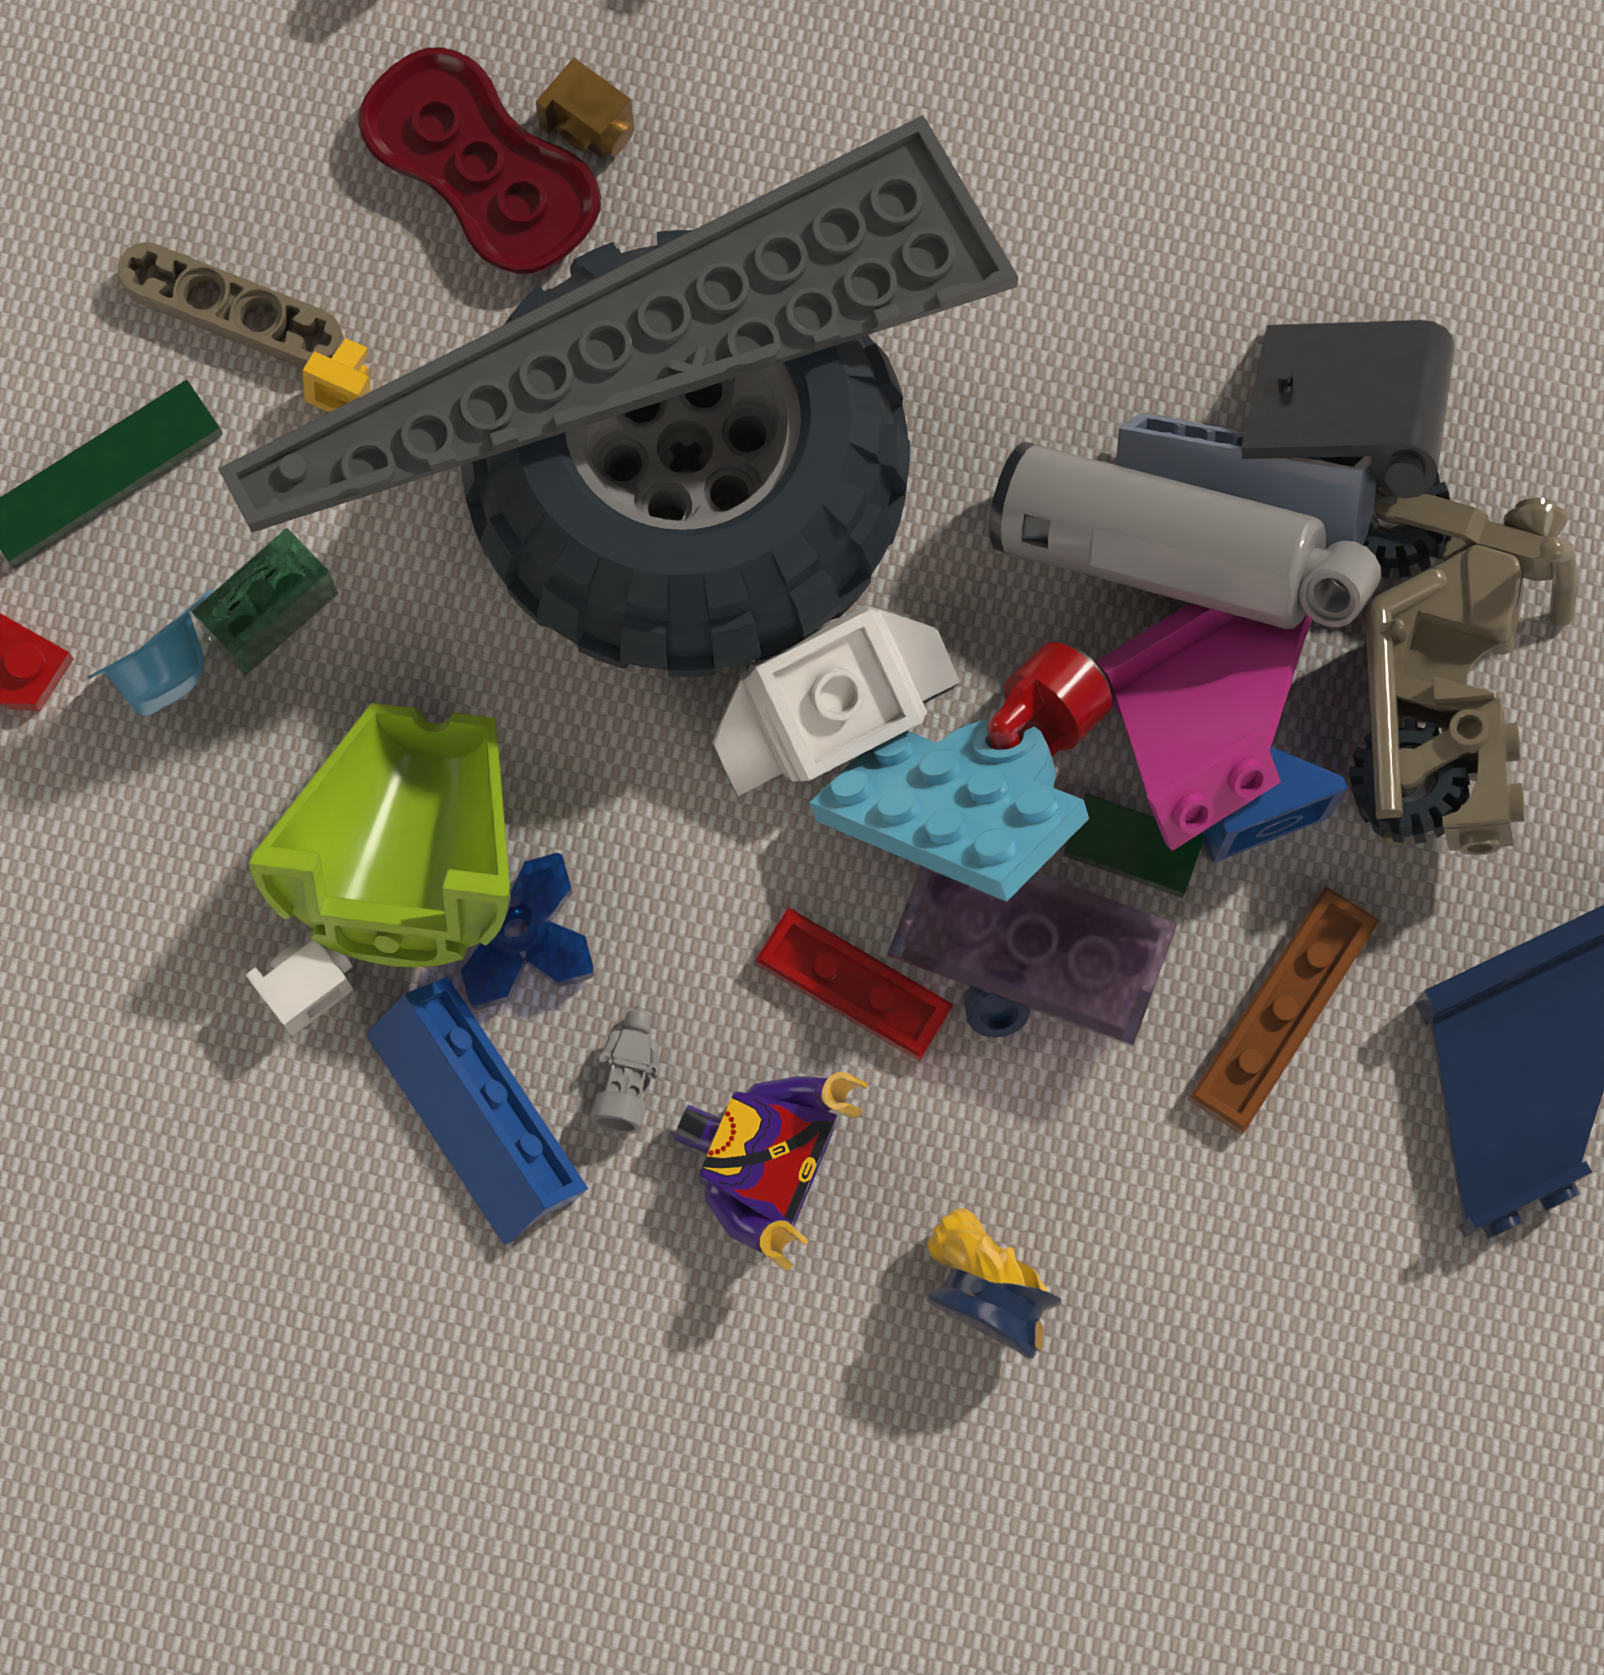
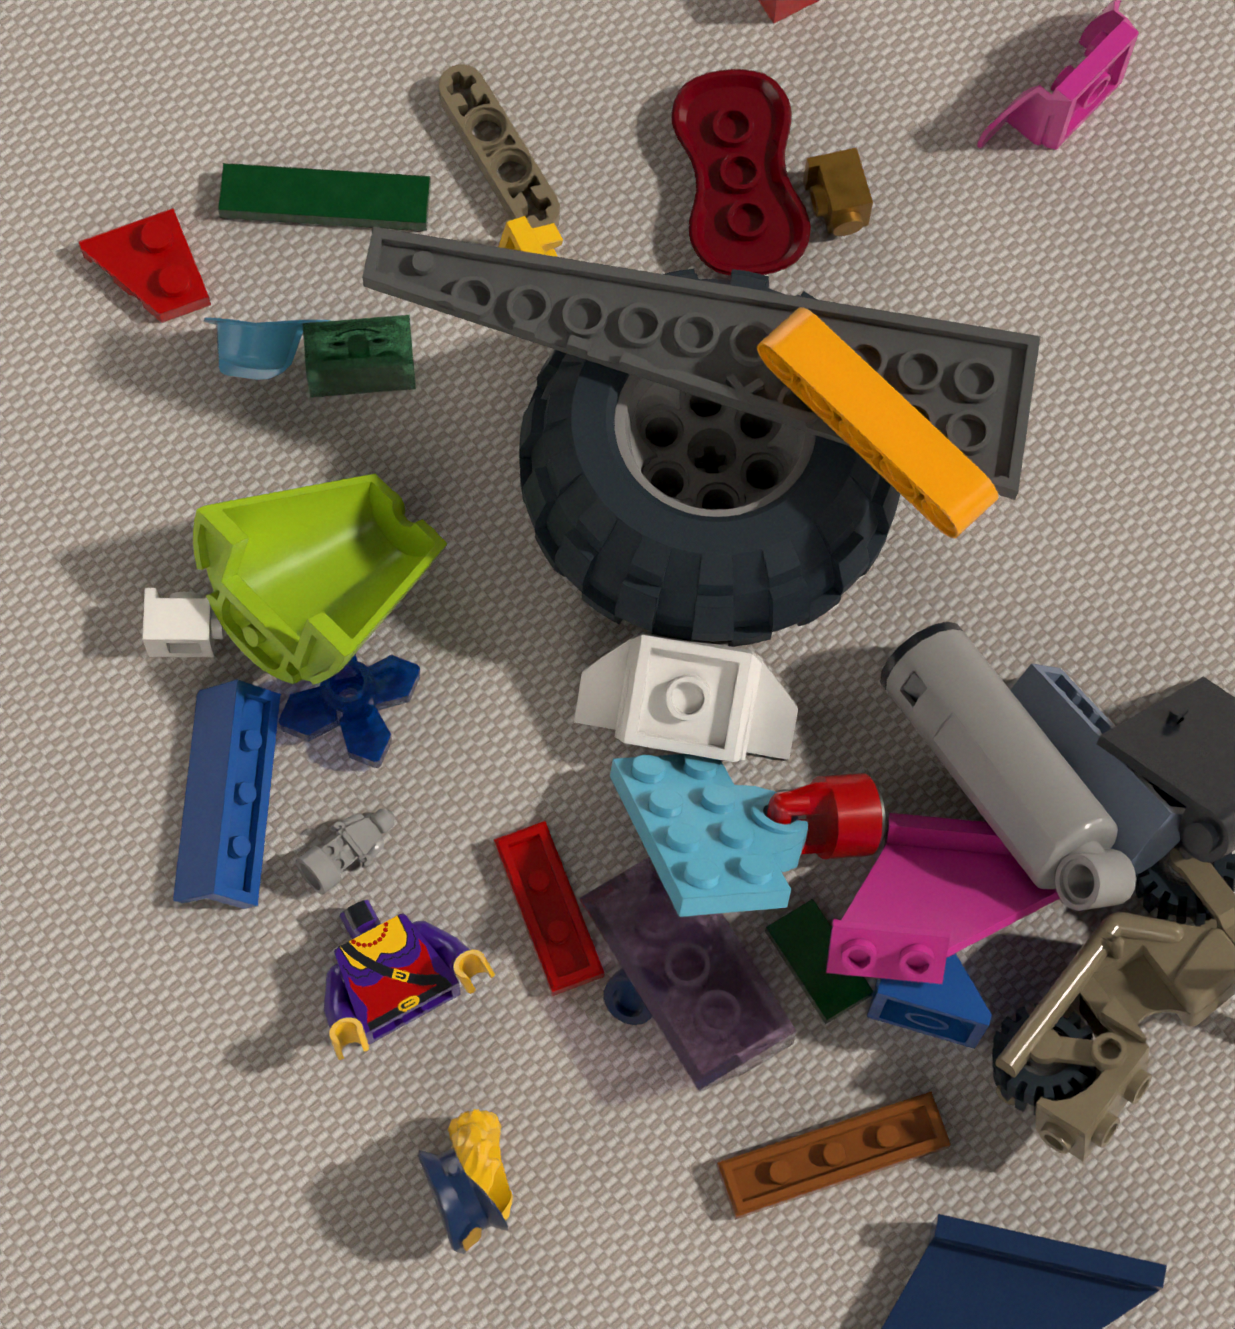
camera: 35 degrees right, 5 degrees down
(844, 306) = (877, 422): none -> light orange beam

